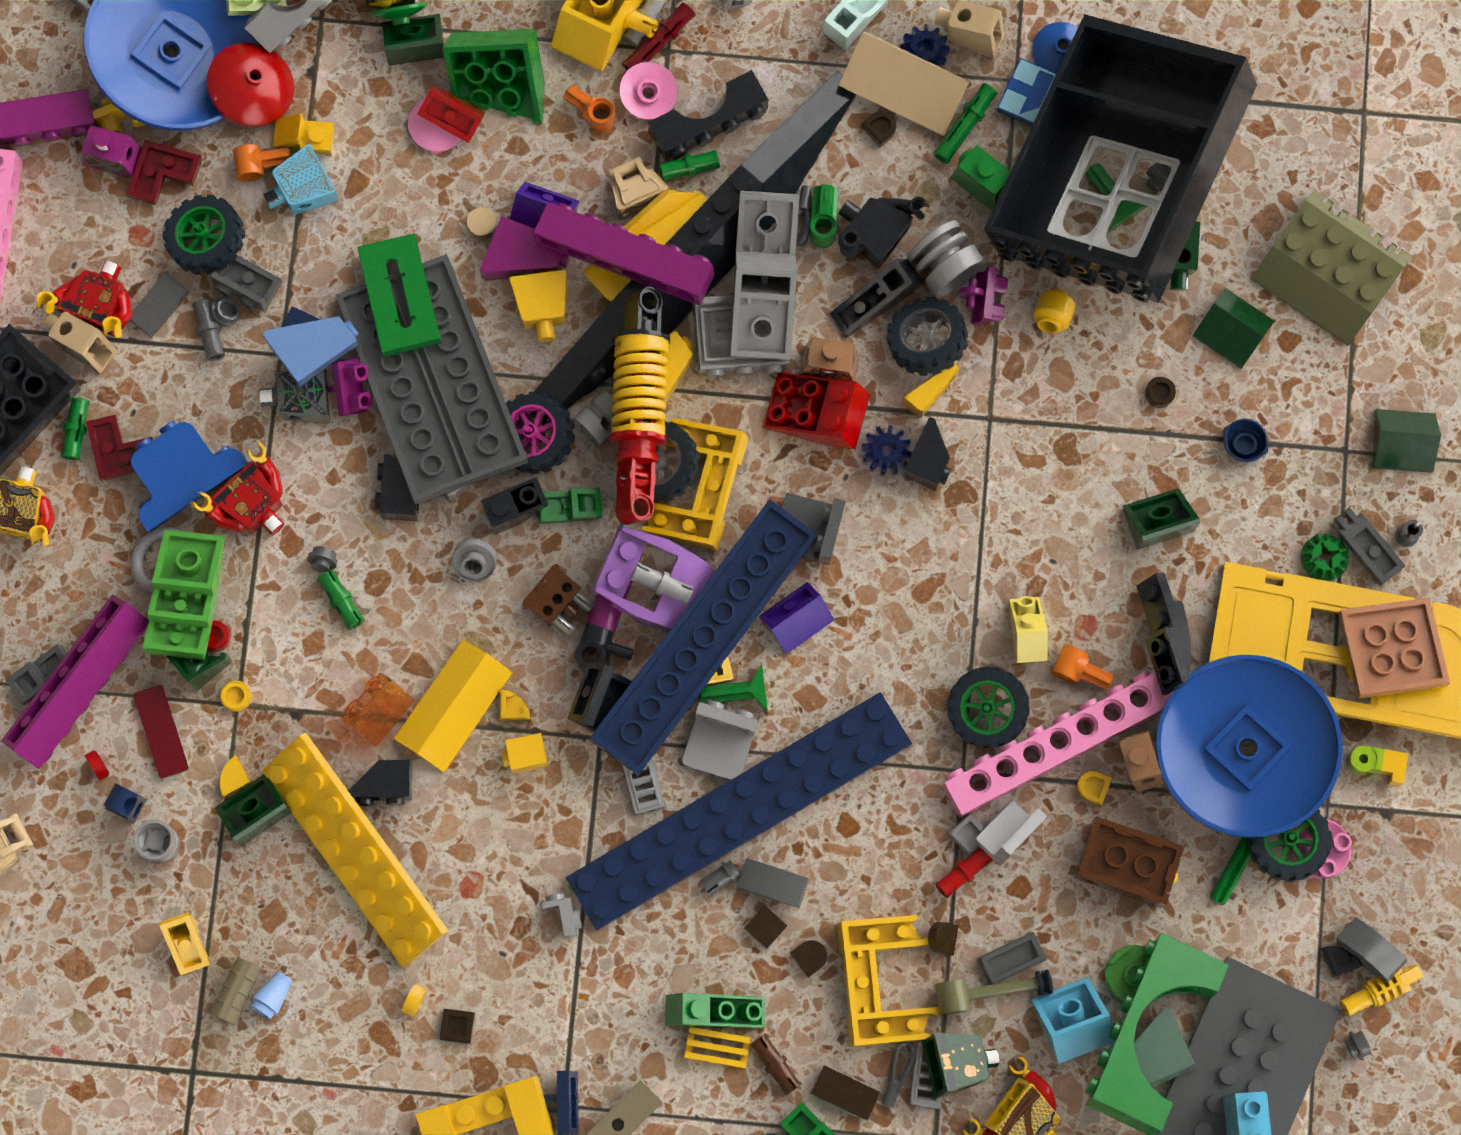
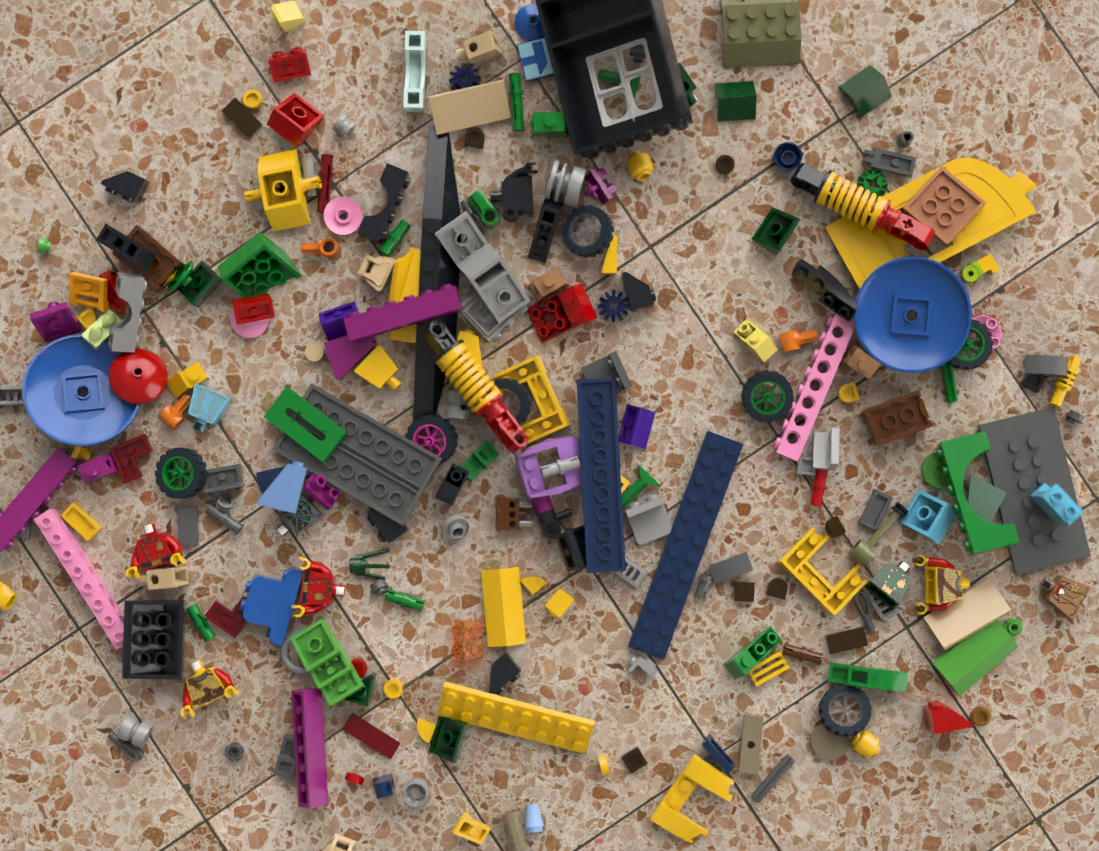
camera: 30 degrees left, 10 degrees up
(38, 199) = (81, 521): none -> yellow tile
(322, 513) = (358, 565): none -> dark green plant
(1289, 567) = (853, 204): none -> piece

